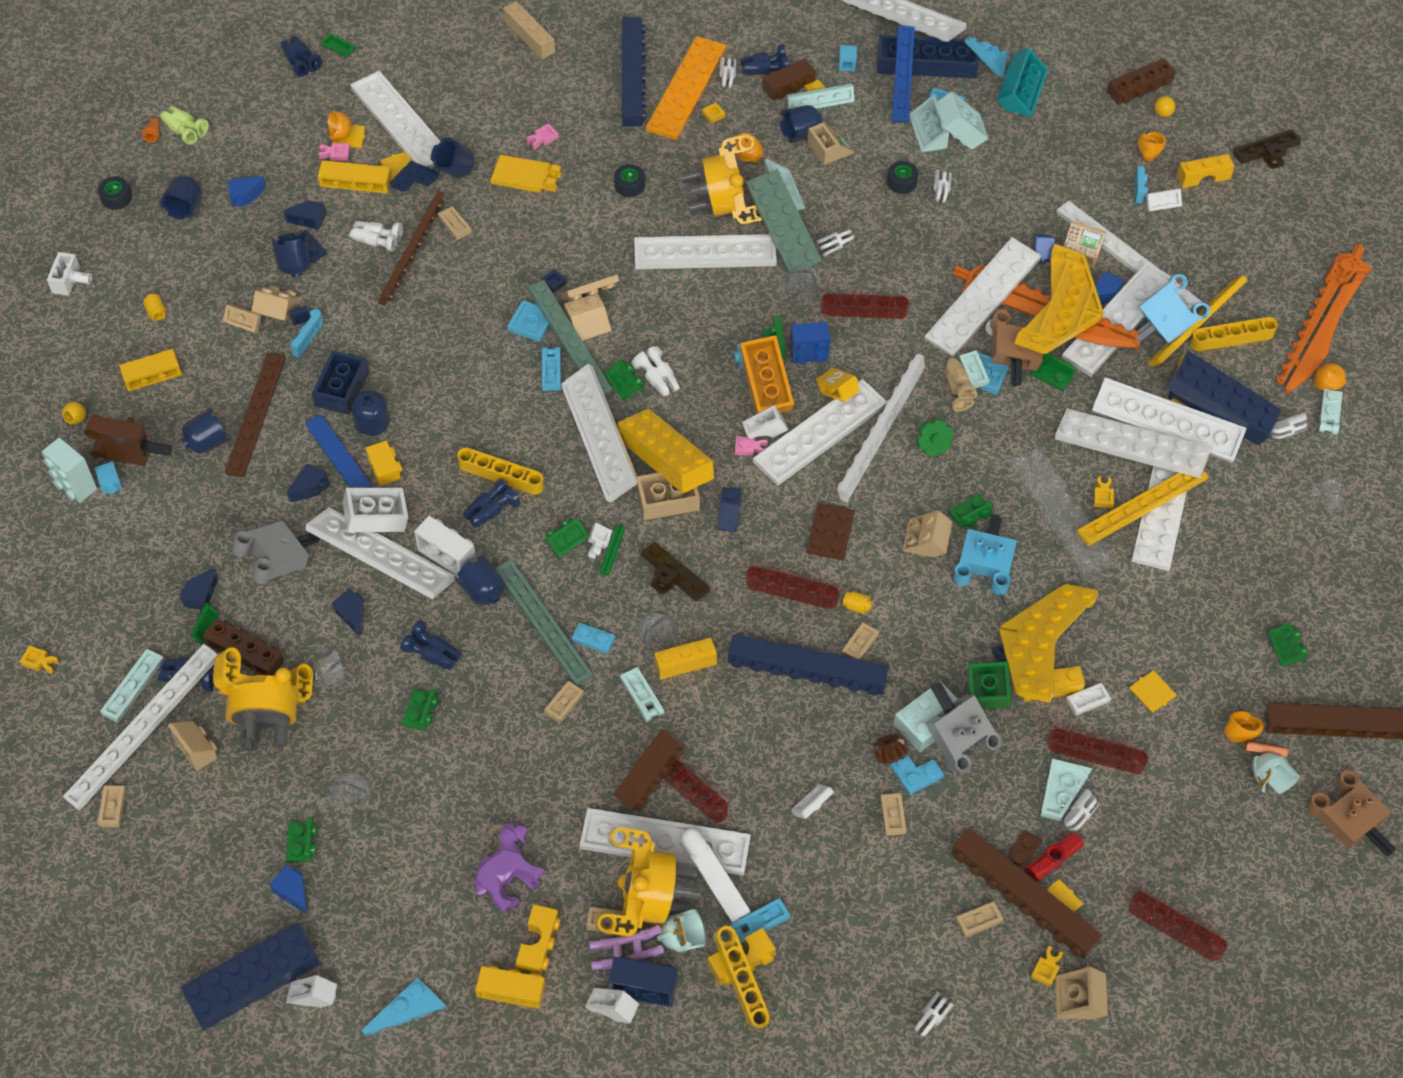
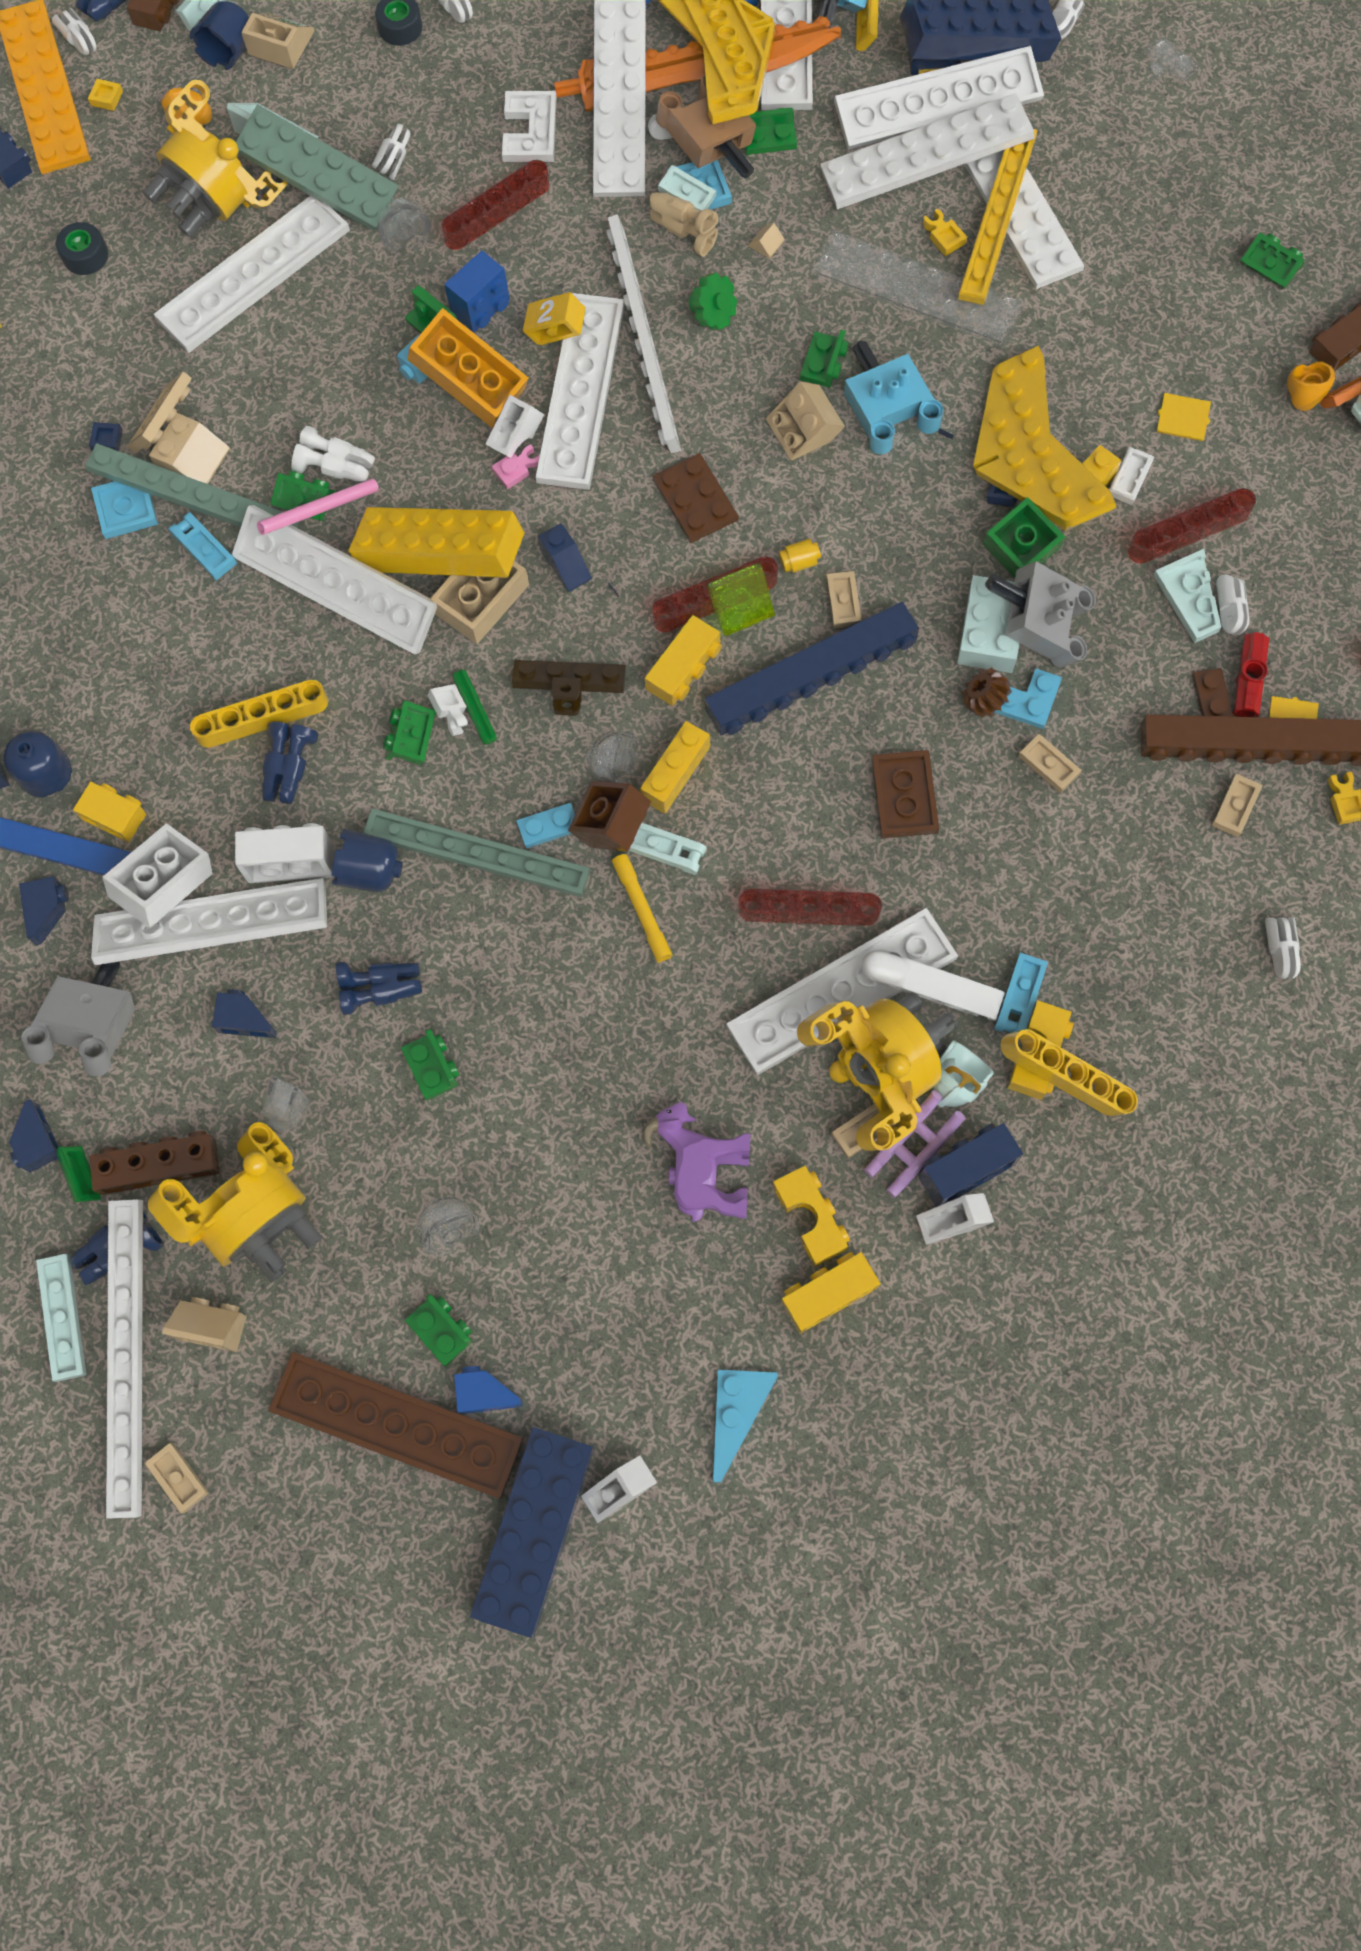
camera: 35 degrees left, 15 degrees up
(236, 869) = (396, 1425): none -> reddish brown plate
(564, 702) = (586, 925): tan plate -> none
(594, 736) = (654, 936): none -> yellow piece
(625, 390) = (317, 506): none -> bright pink piece
(625, 655) = (609, 815): none -> reddish brown brick
(649, 770) = (763, 925): reddish brown brick -> none
(742, 608) = (683, 661): none -> yellow brick
(796, 768) = (905, 794): none -> reddish brown plate
(801, 599) = (741, 599): none -> clear neon green plate
(812, 801) = (955, 817): white plate -> none
(918, 291) = (541, 112): none -> white plate
(998, 428) = (767, 240): none -> tan slope

